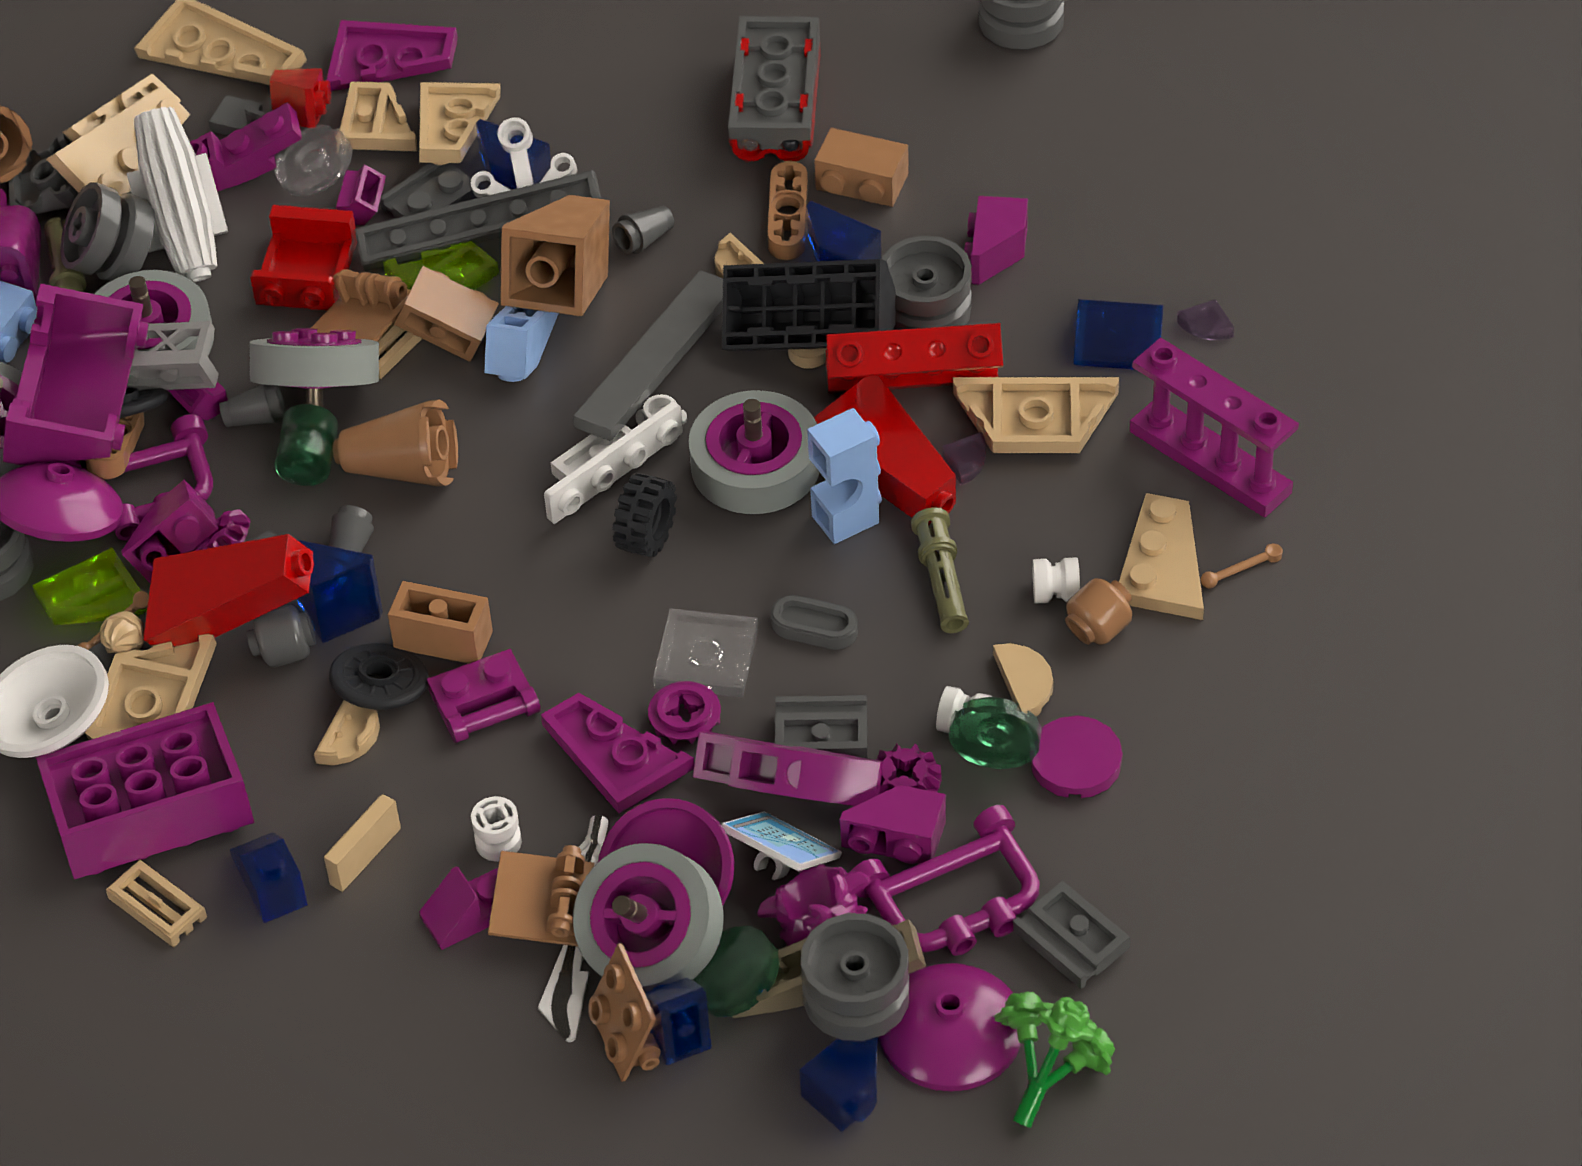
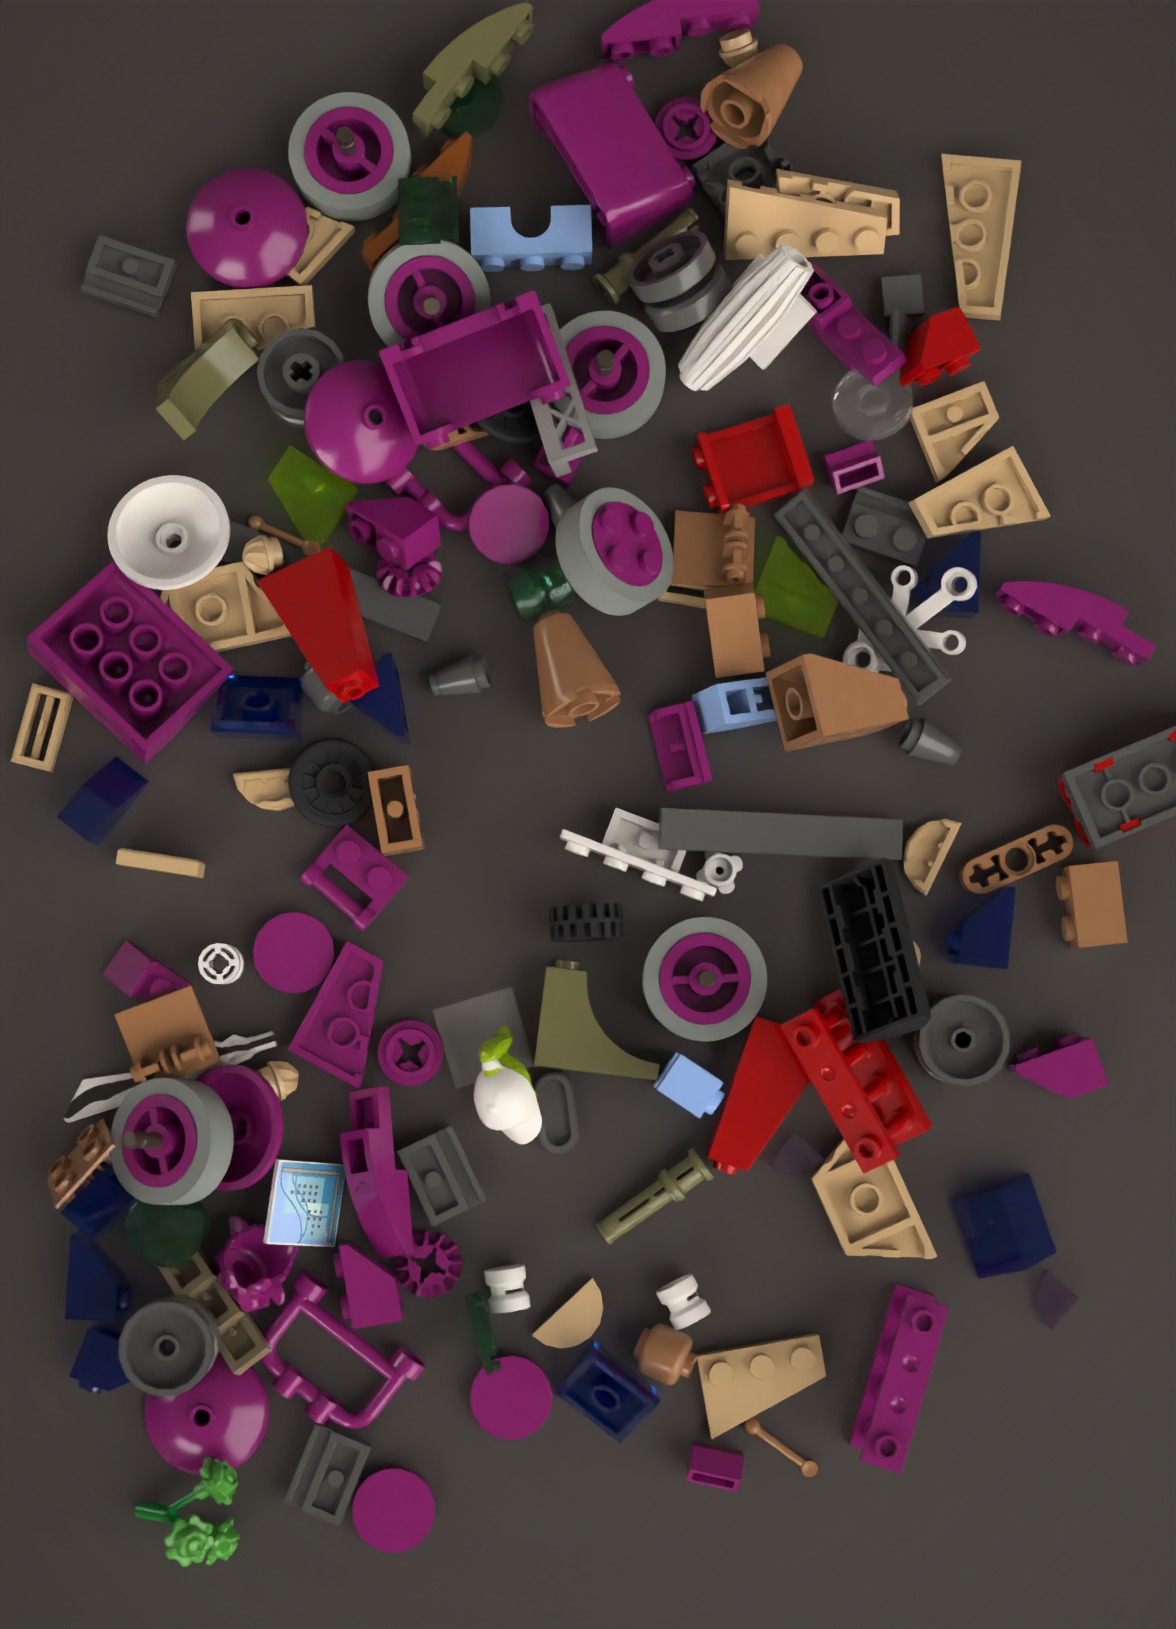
camera: 55 degrees right, 35 degrees up
(229, 447) = (508, 523): none -> magenta tile
(272, 707) = (259, 708): none -> clear blue slope
(388, 52) = (1043, 389): magenta wing -> none
(526, 770) = (294, 952): none -> magenta tile
(527, 399) = (680, 747): none -> magenta hinge
(590, 93) = (1061, 607): none -> magenta slope
(747, 571) = (571, 1035): none -> olive arch
(752, 1063) = (94, 1283): none -> clear blue slope
(773, 638) = (505, 1091): none -> white hair
(1110, 664) = (608, 1392): none -> clear blue slope
(1140, 894) = (393, 1509): none -> magenta tile
(1214, 622) = (714, 1466): none -> magenta piece

